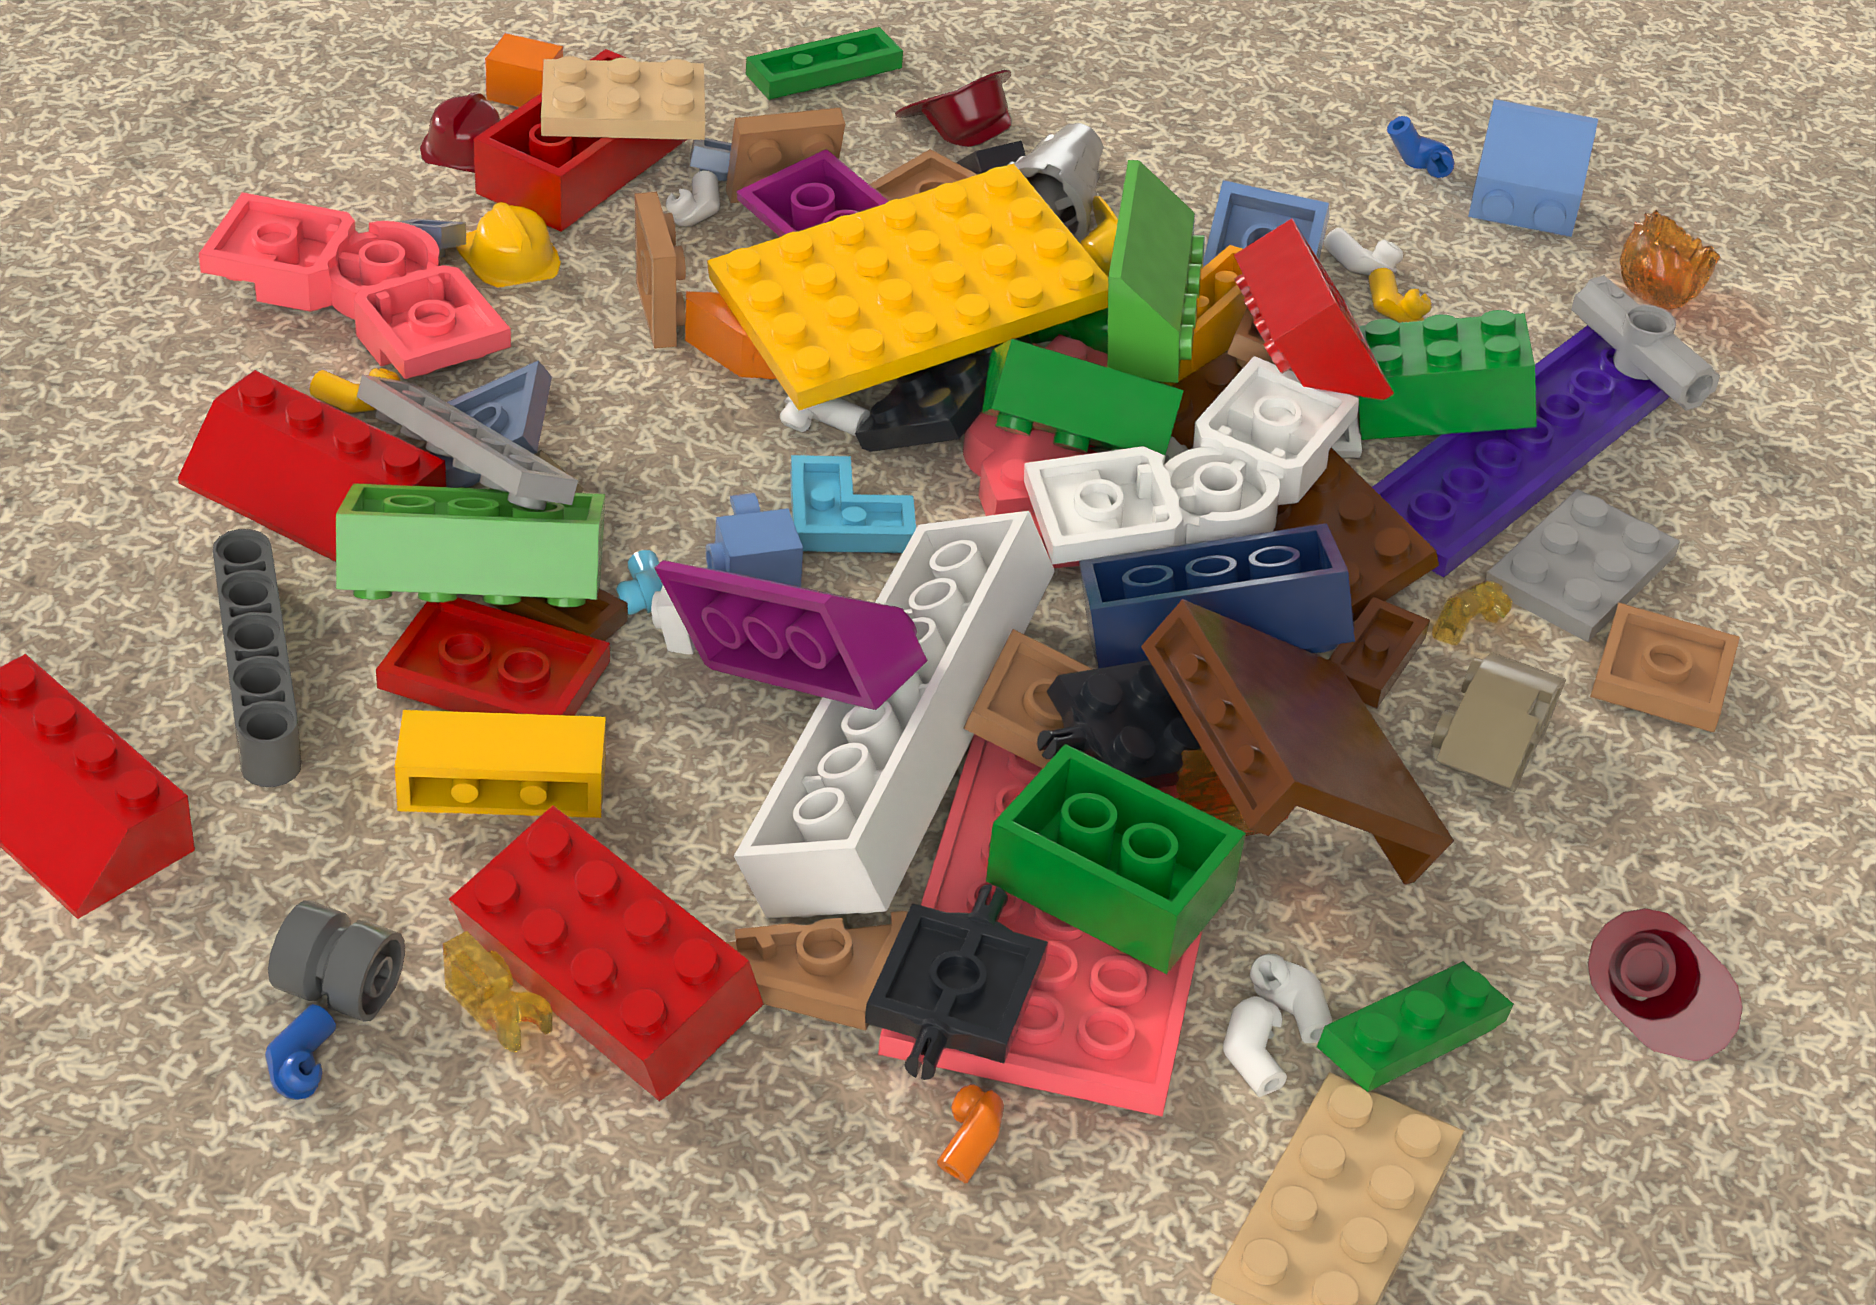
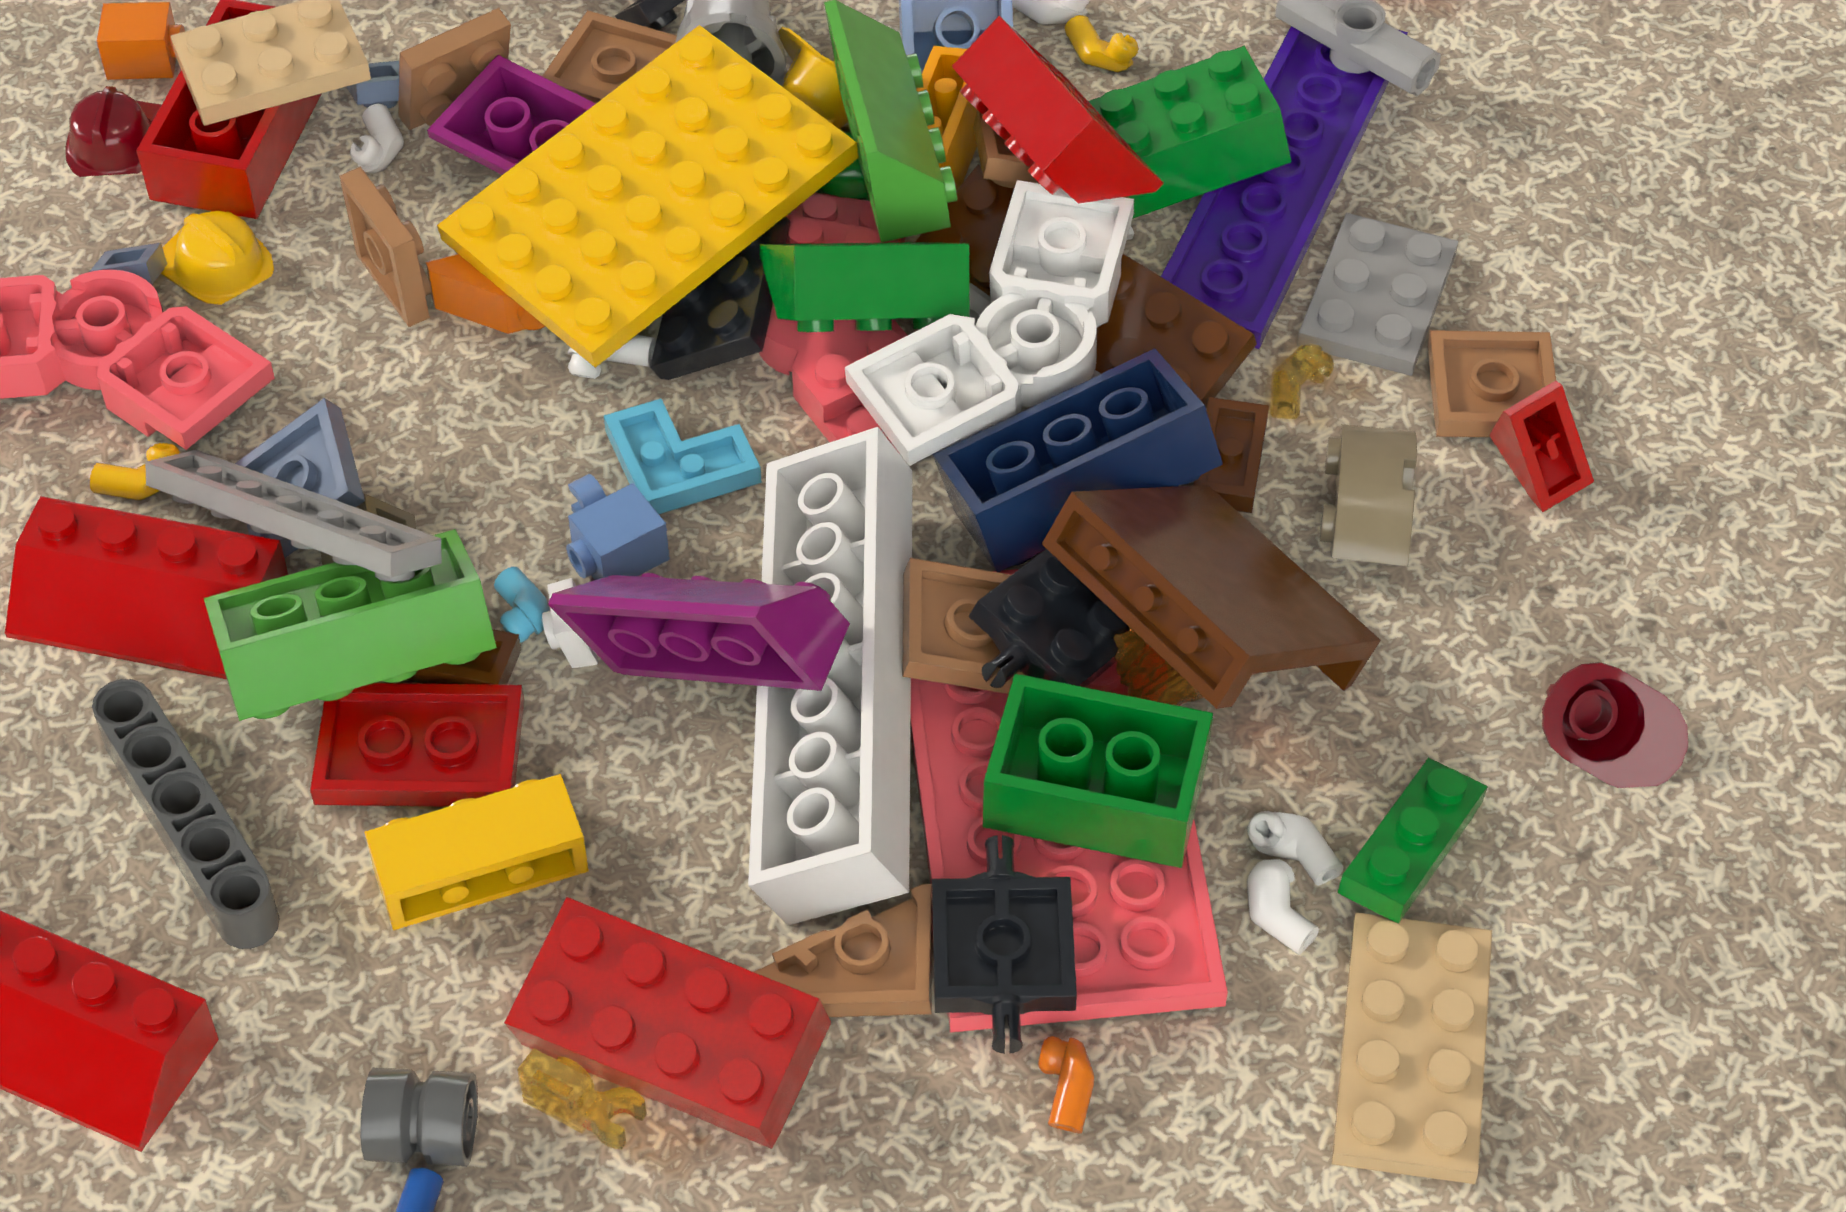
camera: 15 degrees left, 10 degrees up
(1690, 723) = (1543, 446): none -> red slope

